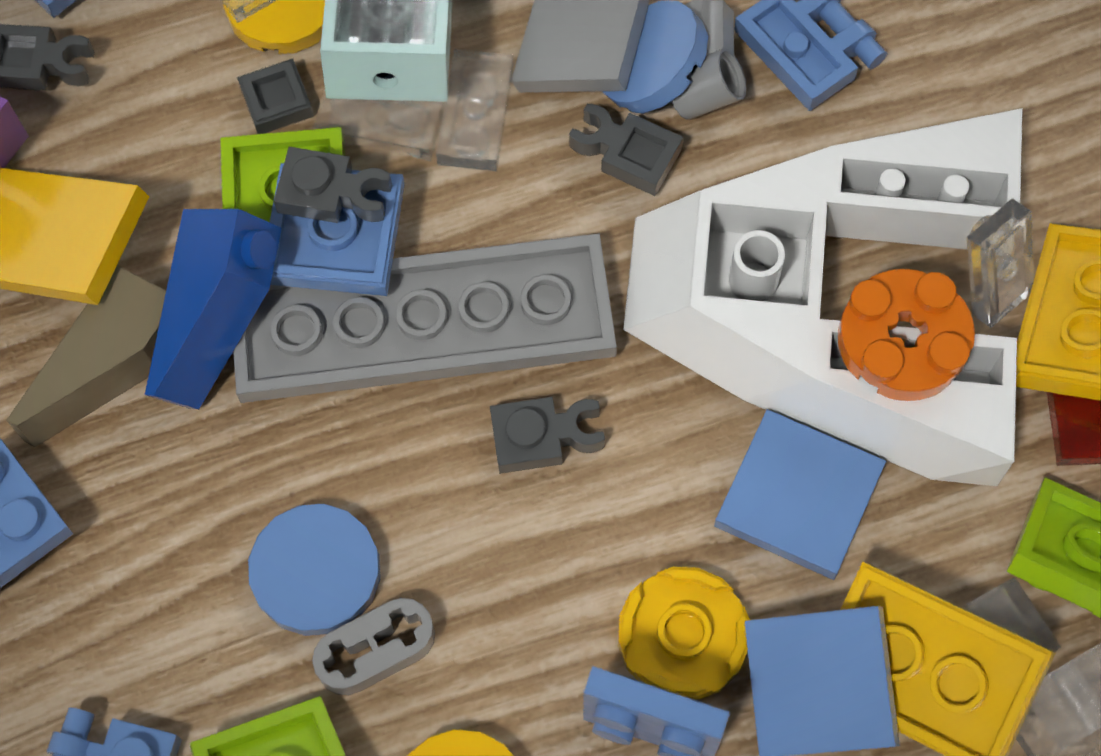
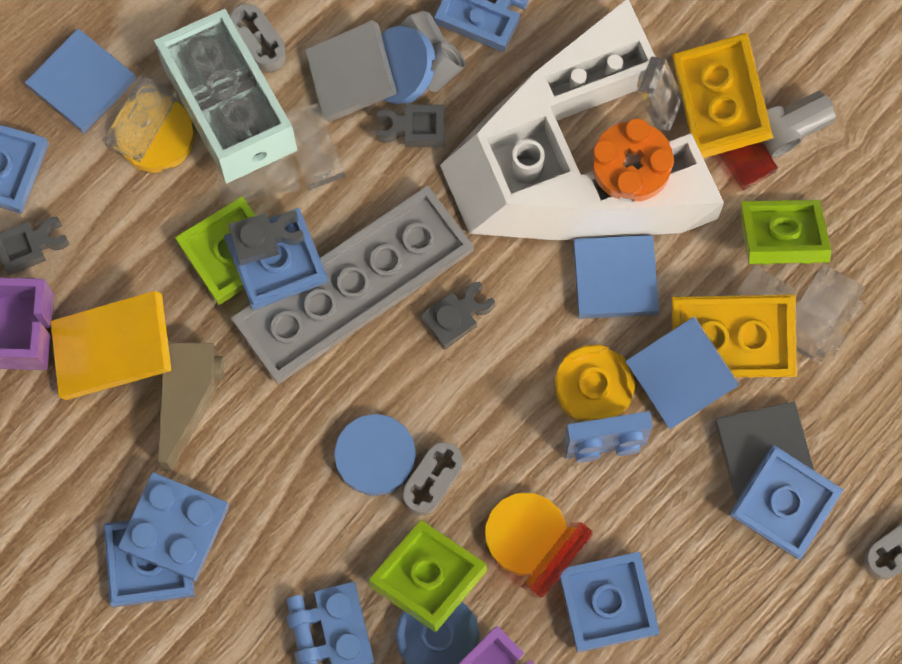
camera: 30 degrees left, 5 degrees up
(212, 293) = (233, 331): blue slope -> none
(275, 96) = (187, 196): dark grey tile -> none

